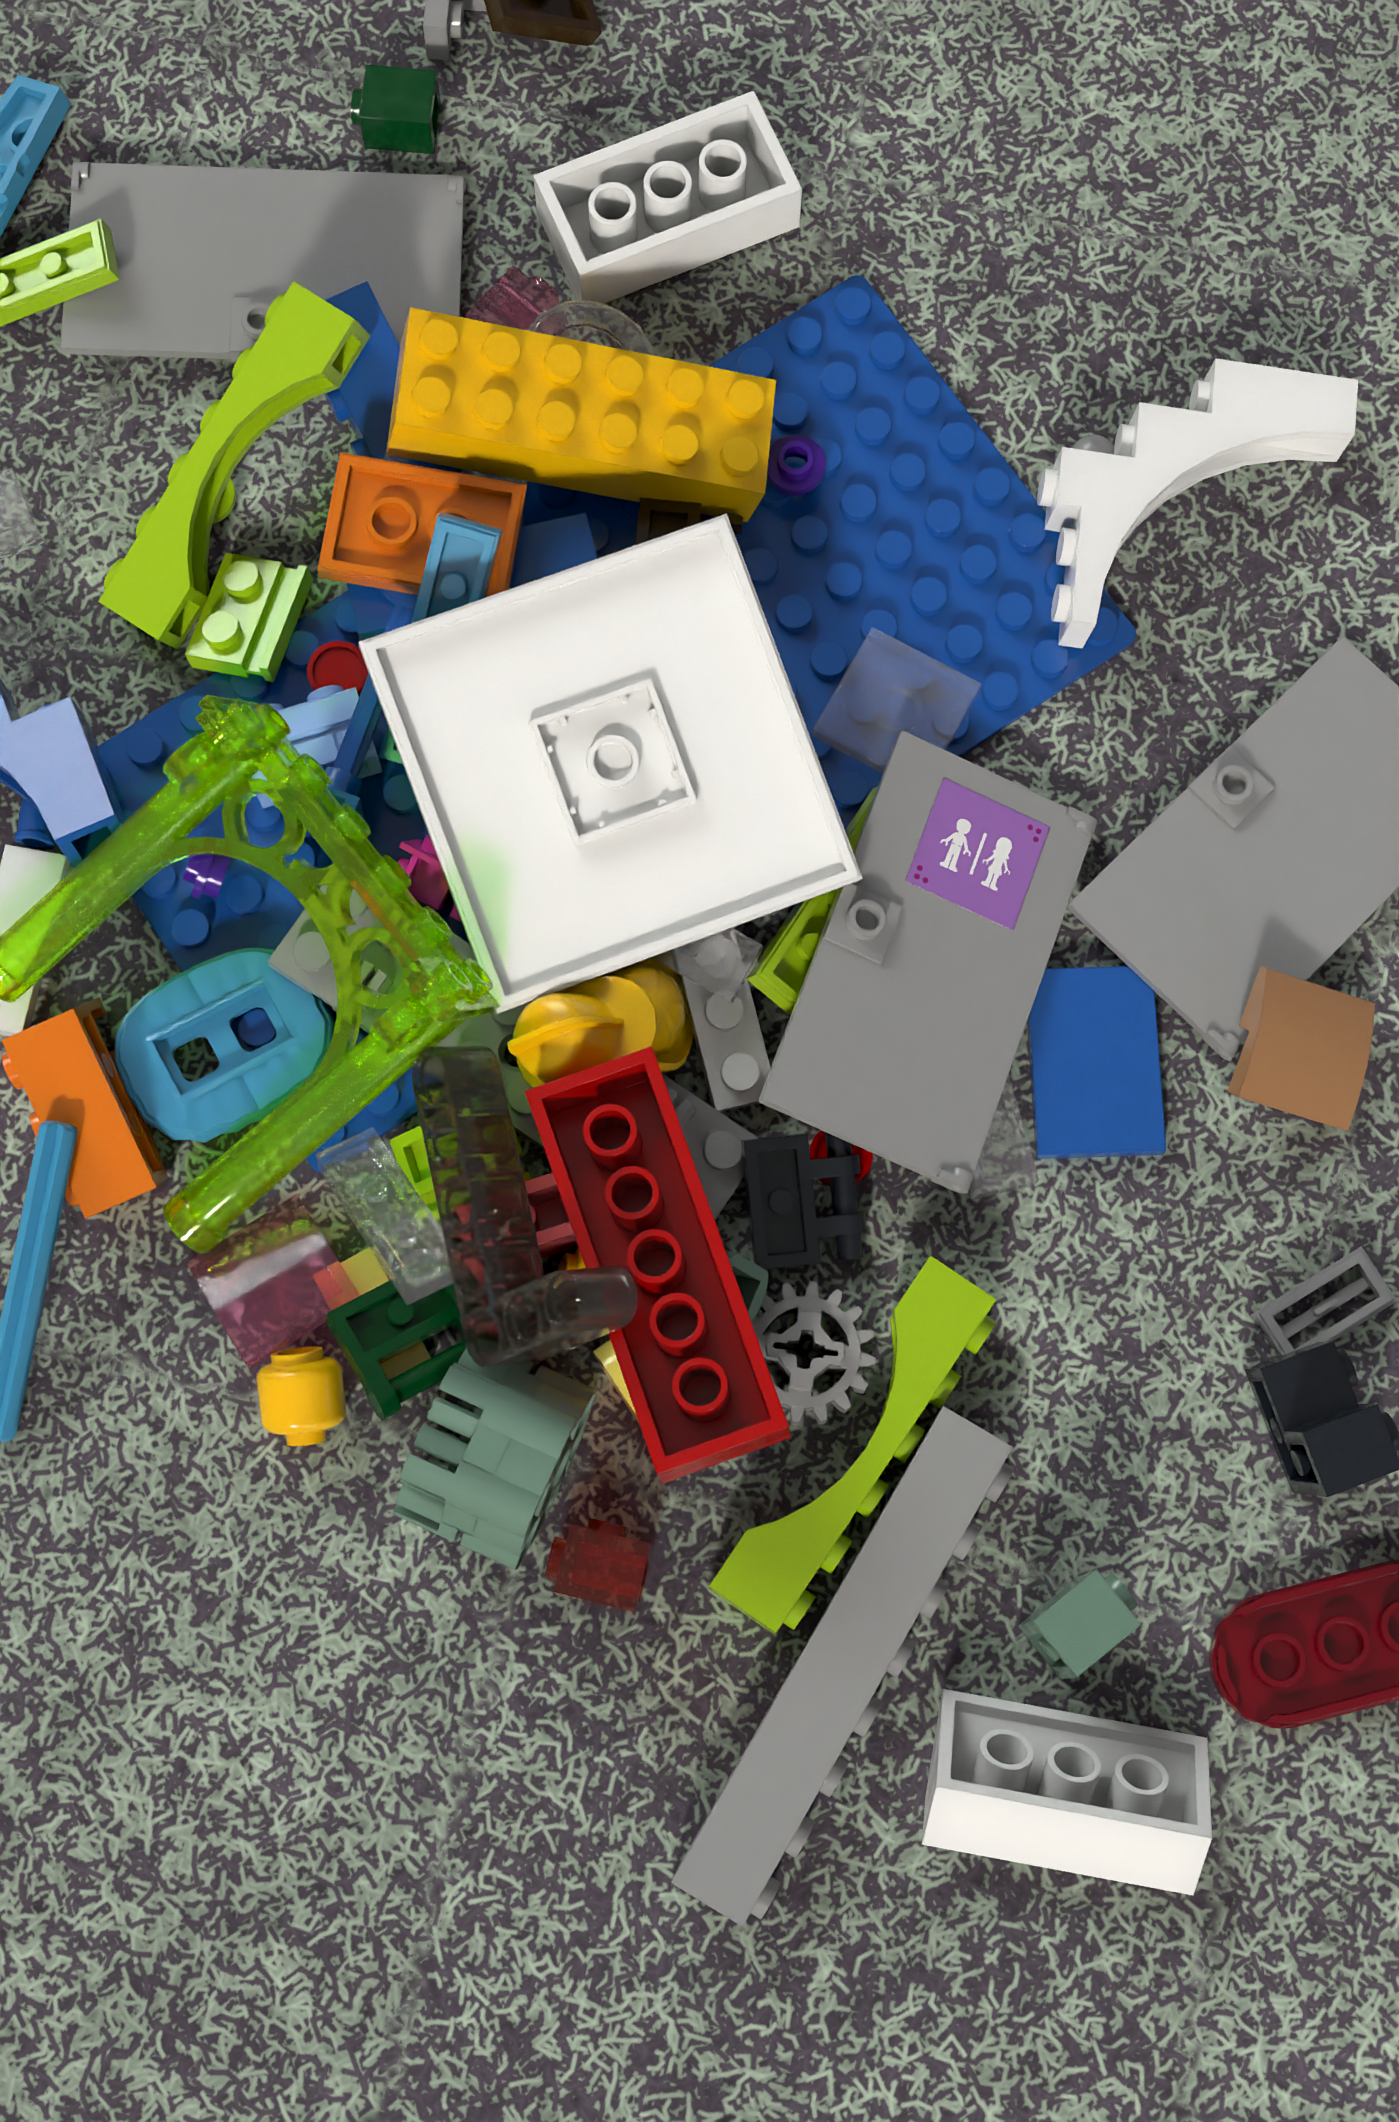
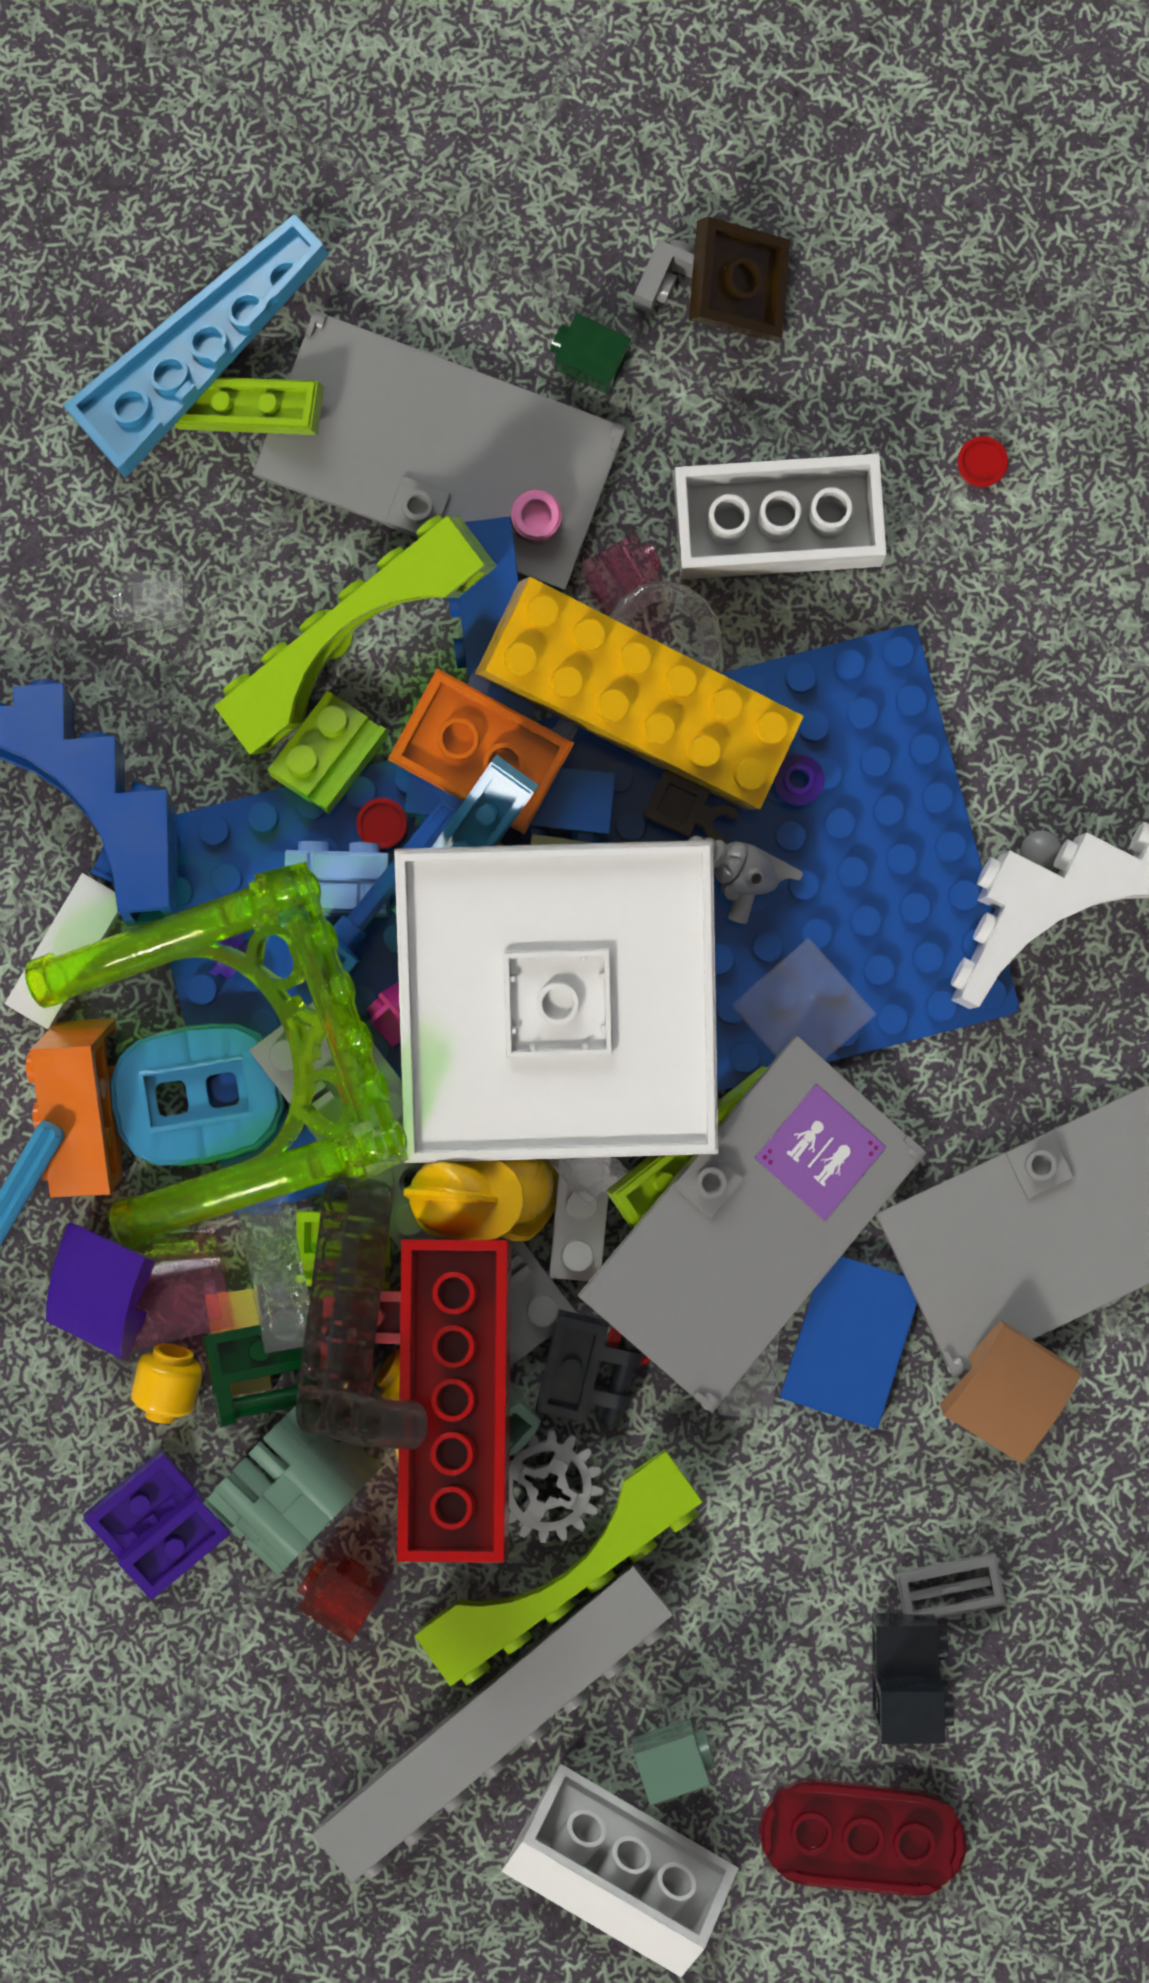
camera: 25 degrees right, 10 degrees up
(179, 1310) = (98, 1290): none -> dark purple slope
(346, 1574) = (156, 1524): none -> dark purple slope
(397, 288) = (536, 516): none -> bright pink tile
(781, 578) = (746, 873): none -> light grey piece
(867, 89) = (982, 461): none -> red piece

